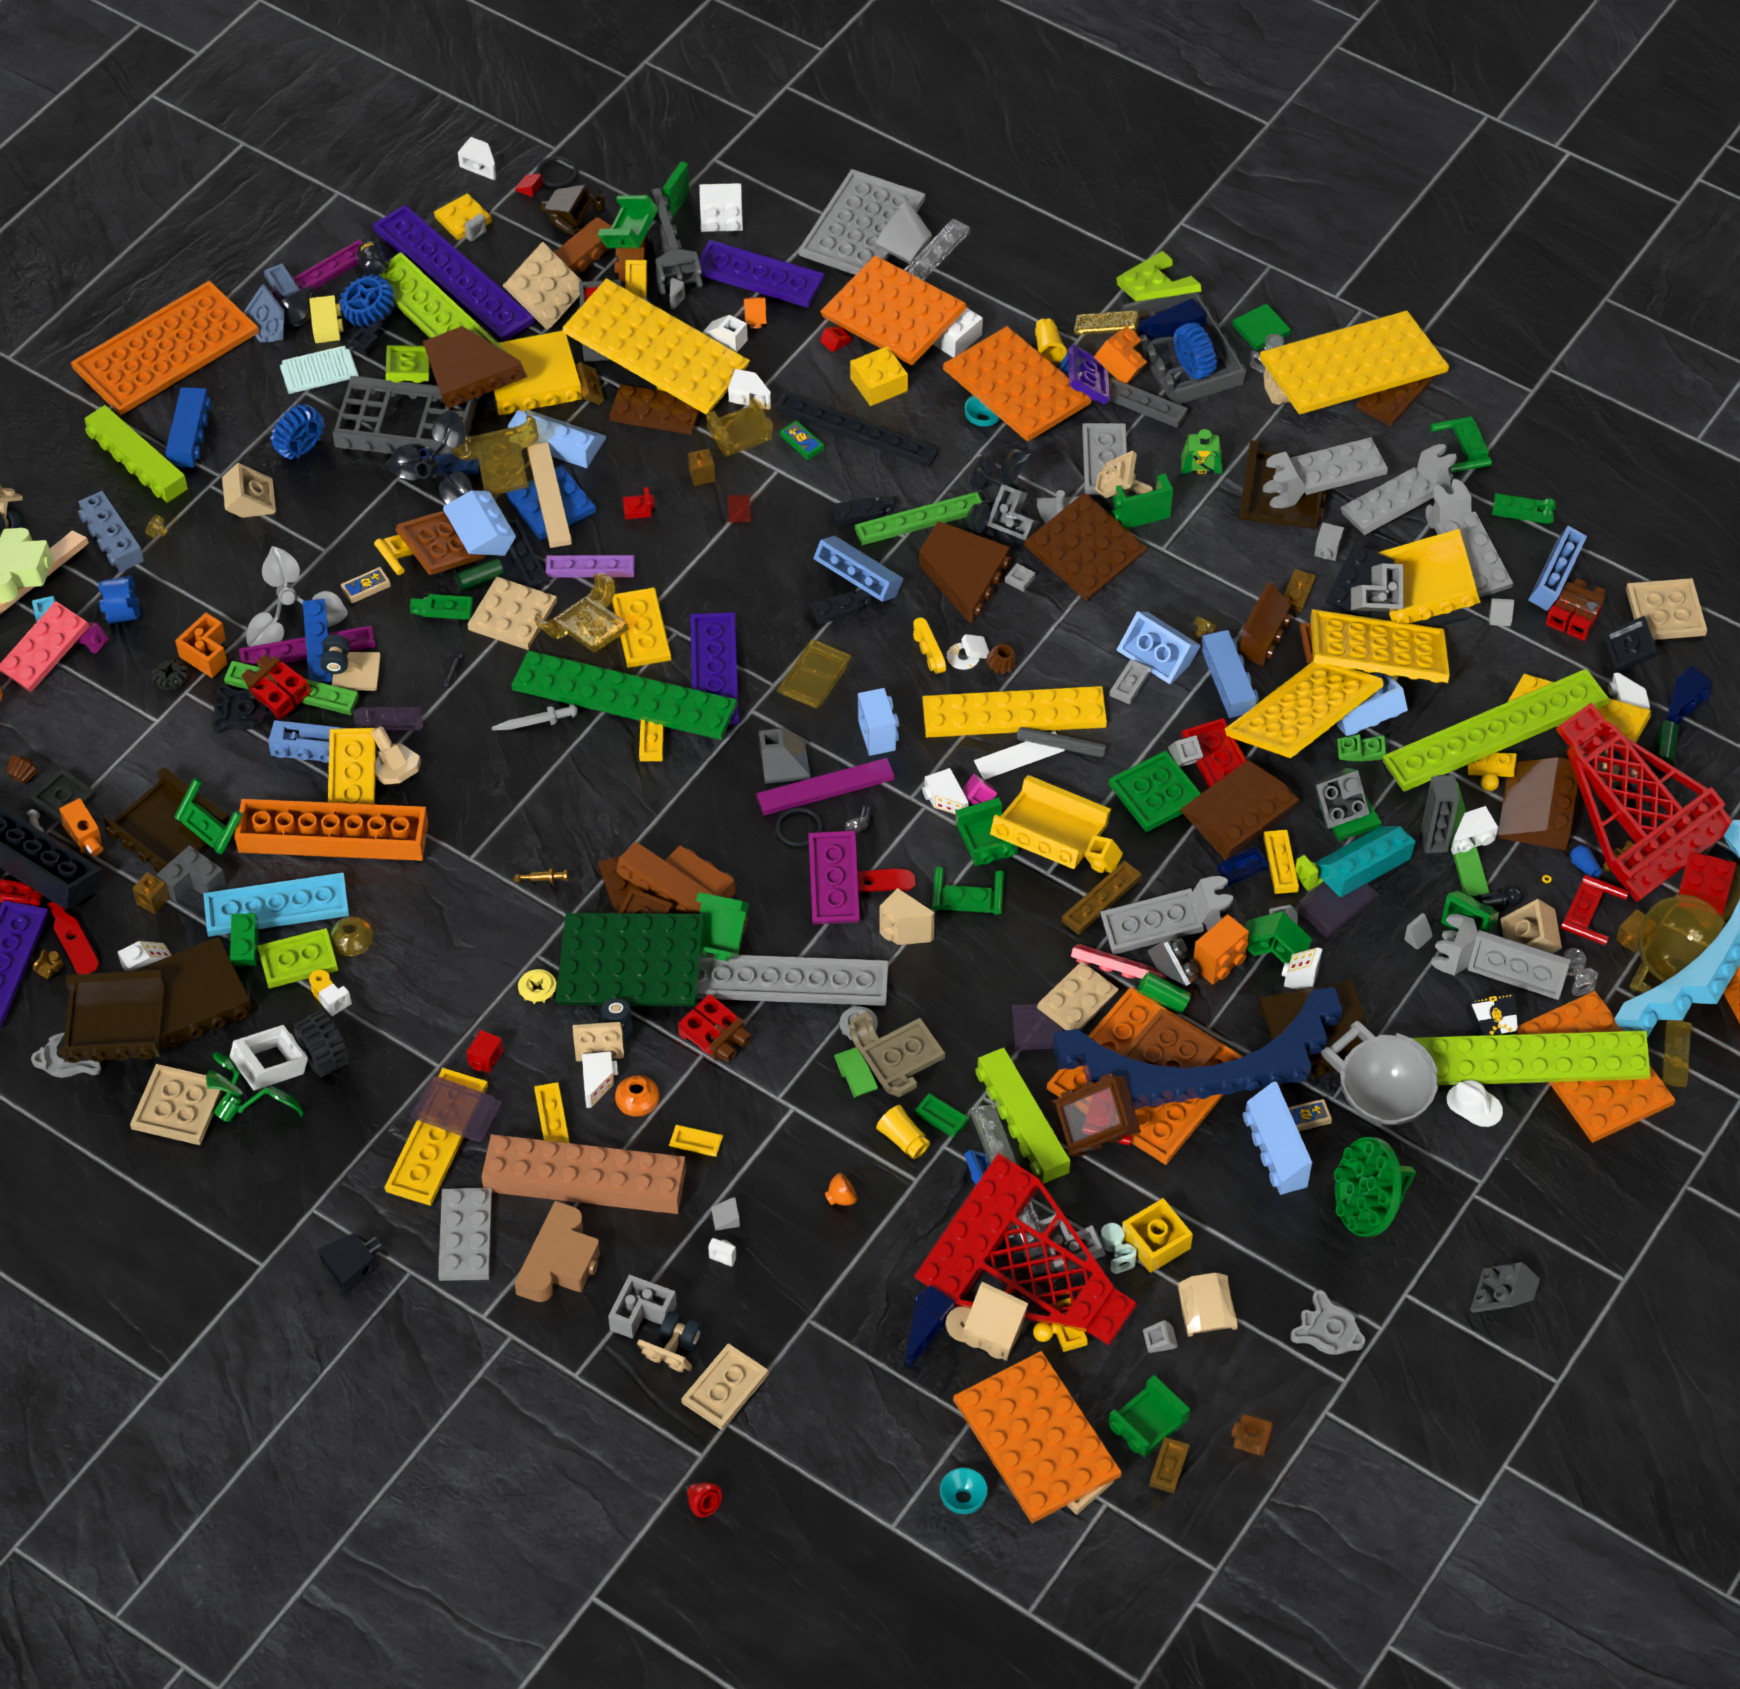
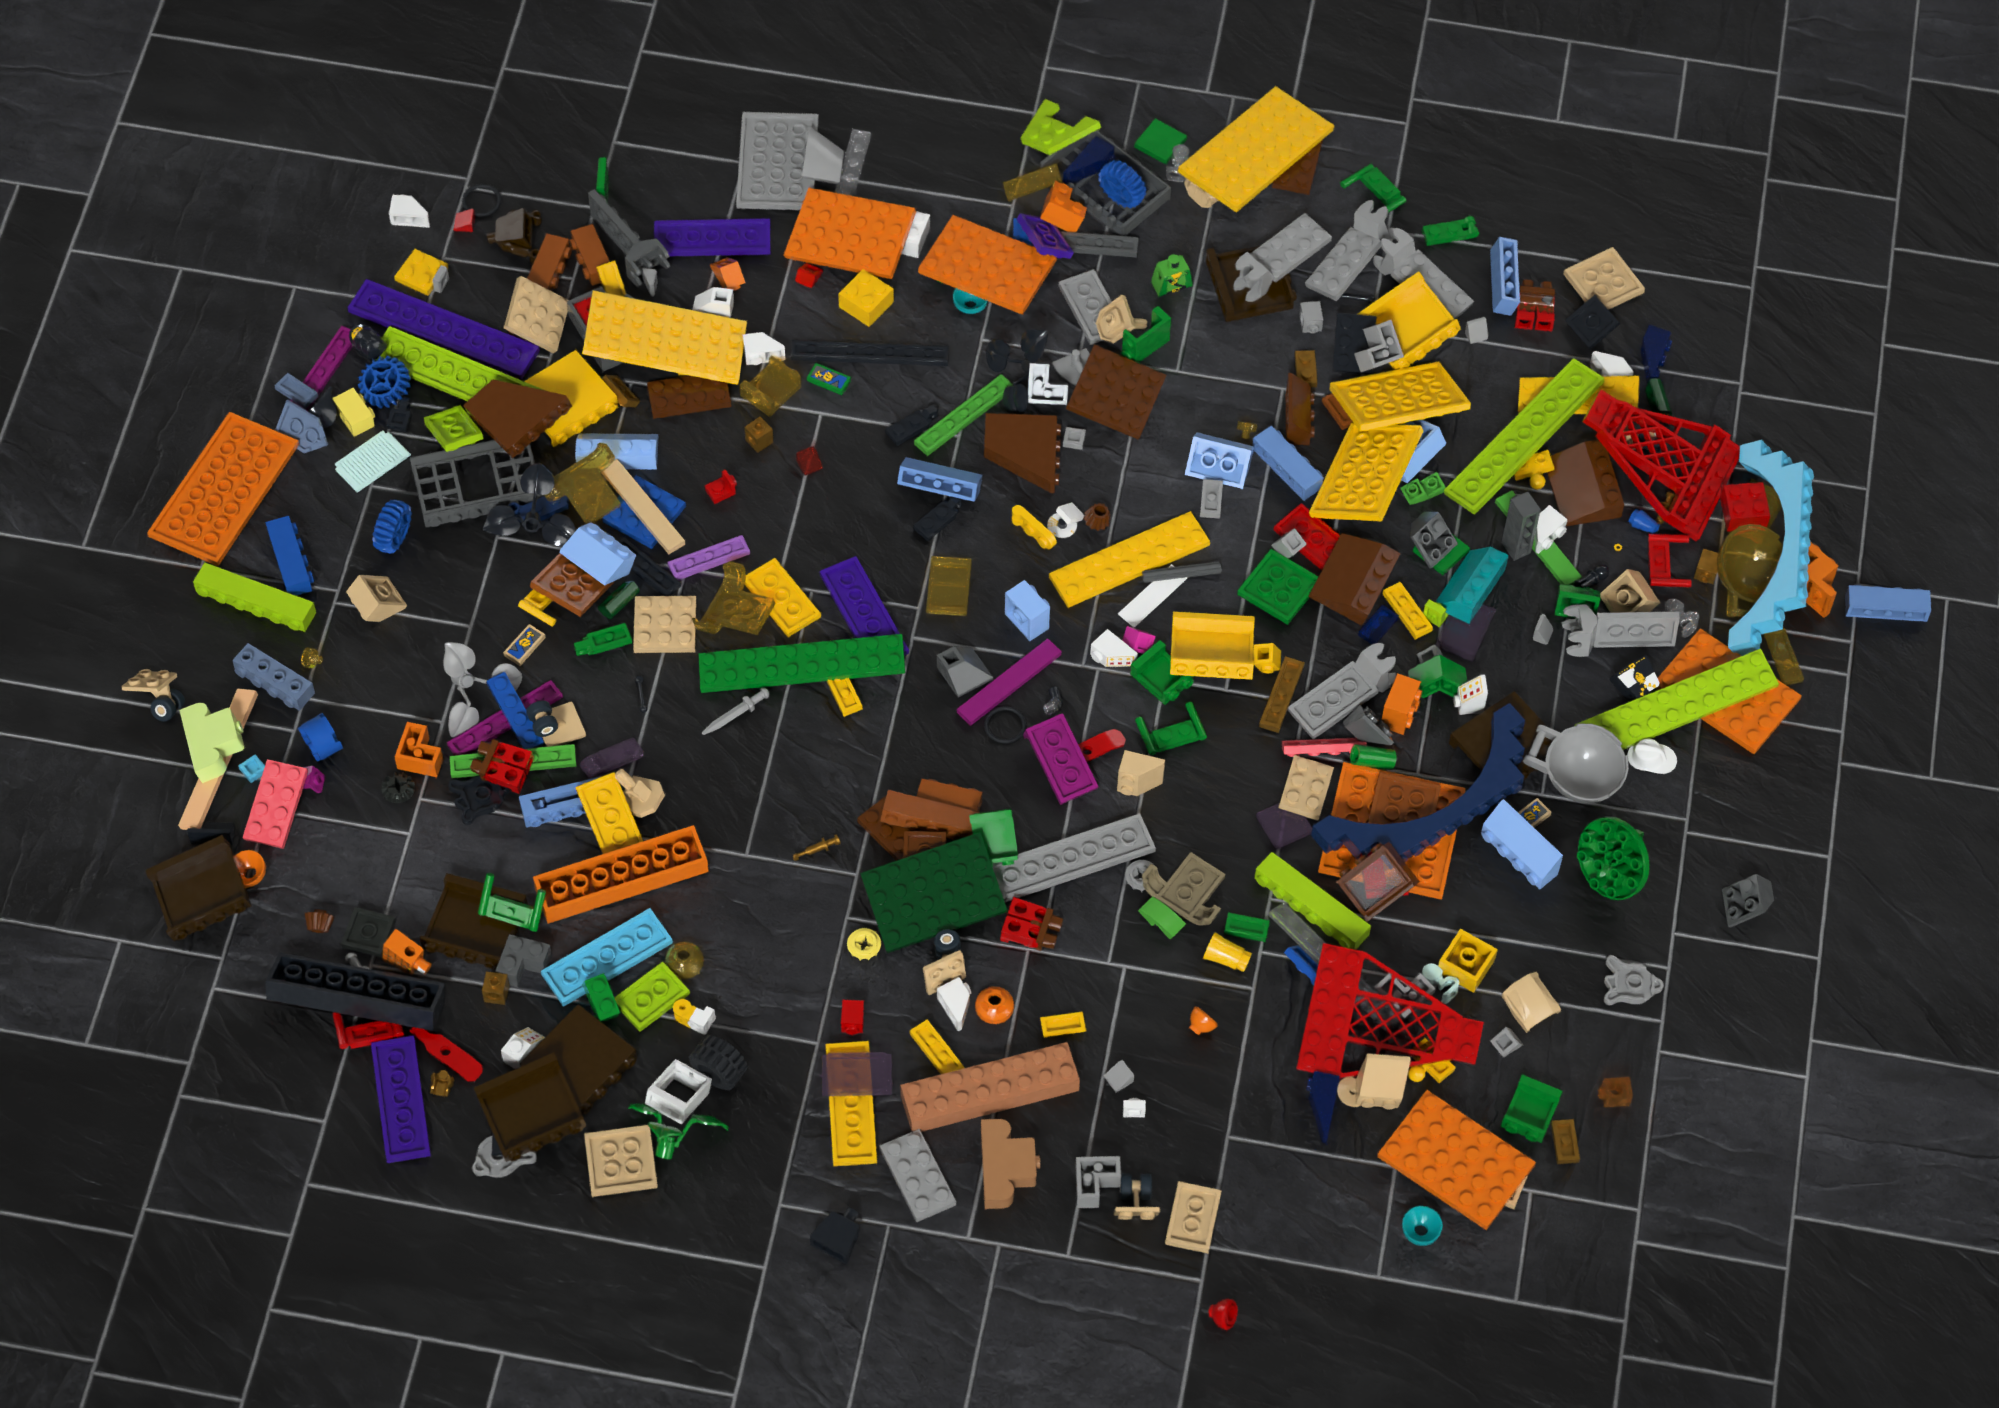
camera: 25 degrees left, 5 degrees up
(631, 222) = (583, 230): green panel -> none
(721, 207) = (650, 187): white brick -> none
(1049, 341) = (993, 215): yellow plant -> none

